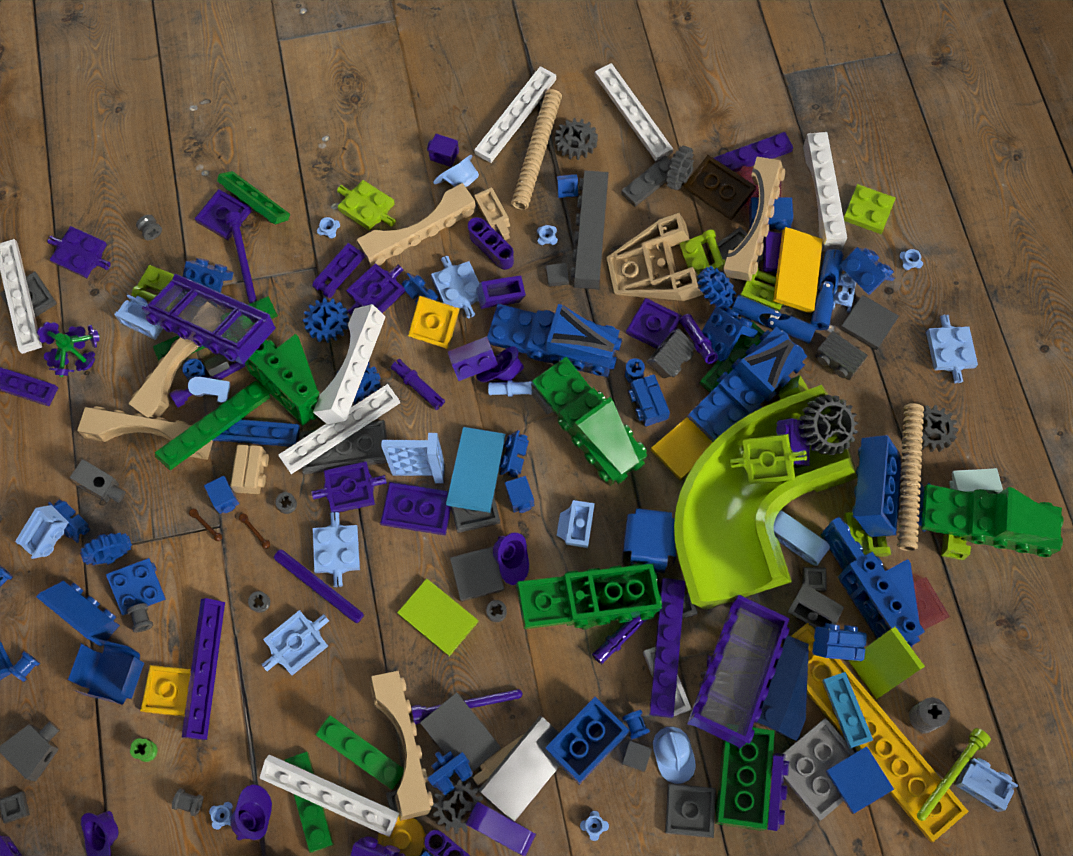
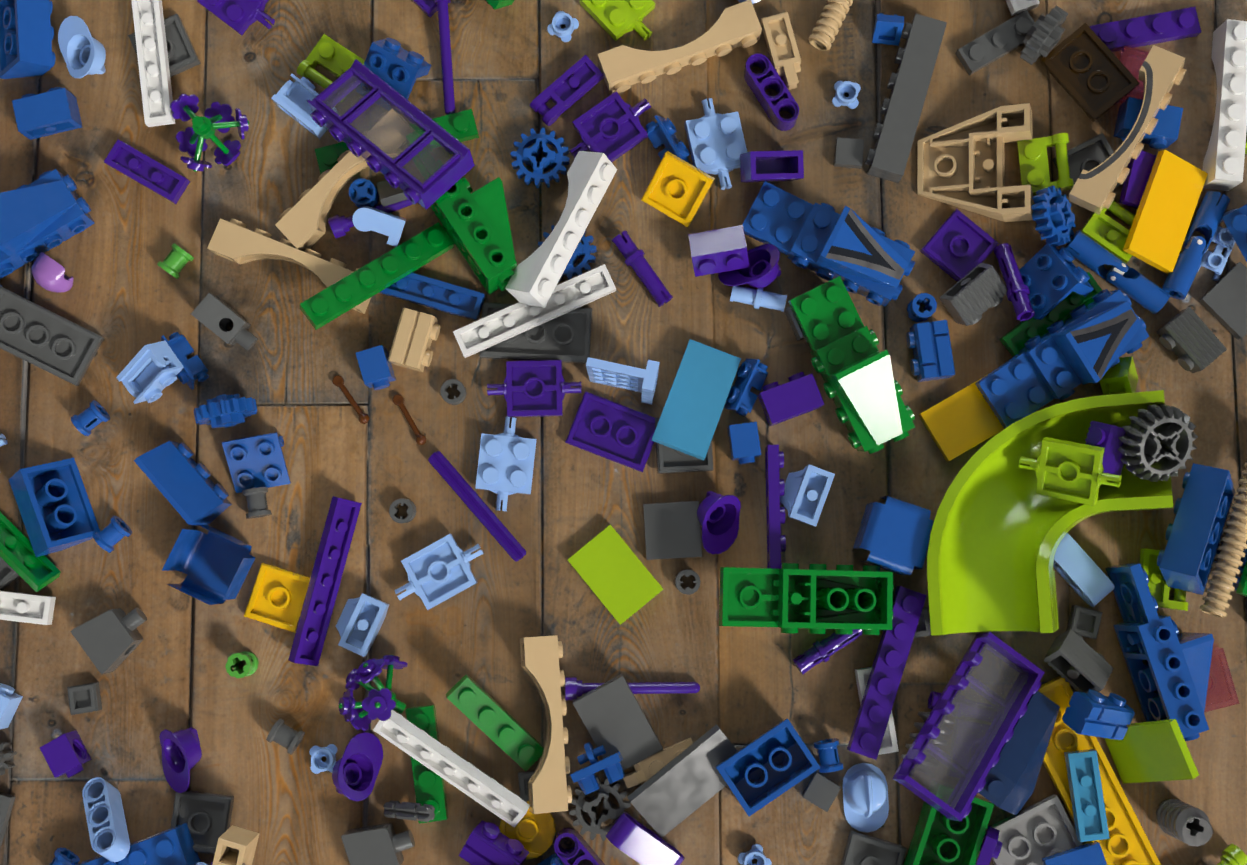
camera: 15 degrees right, 15 degrees up
(53, 447) = (175, 261): none -> bright green bush
(238, 696) = (361, 623): none -> light blue slope
(258, 748) = (379, 701): none -> dark purple plant
(299, 842) = (409, 811): none -> dark grey axle
(549, 456) = (790, 399): none -> dark purple brick
(551, 524) = (774, 513): none -> dark purple plate

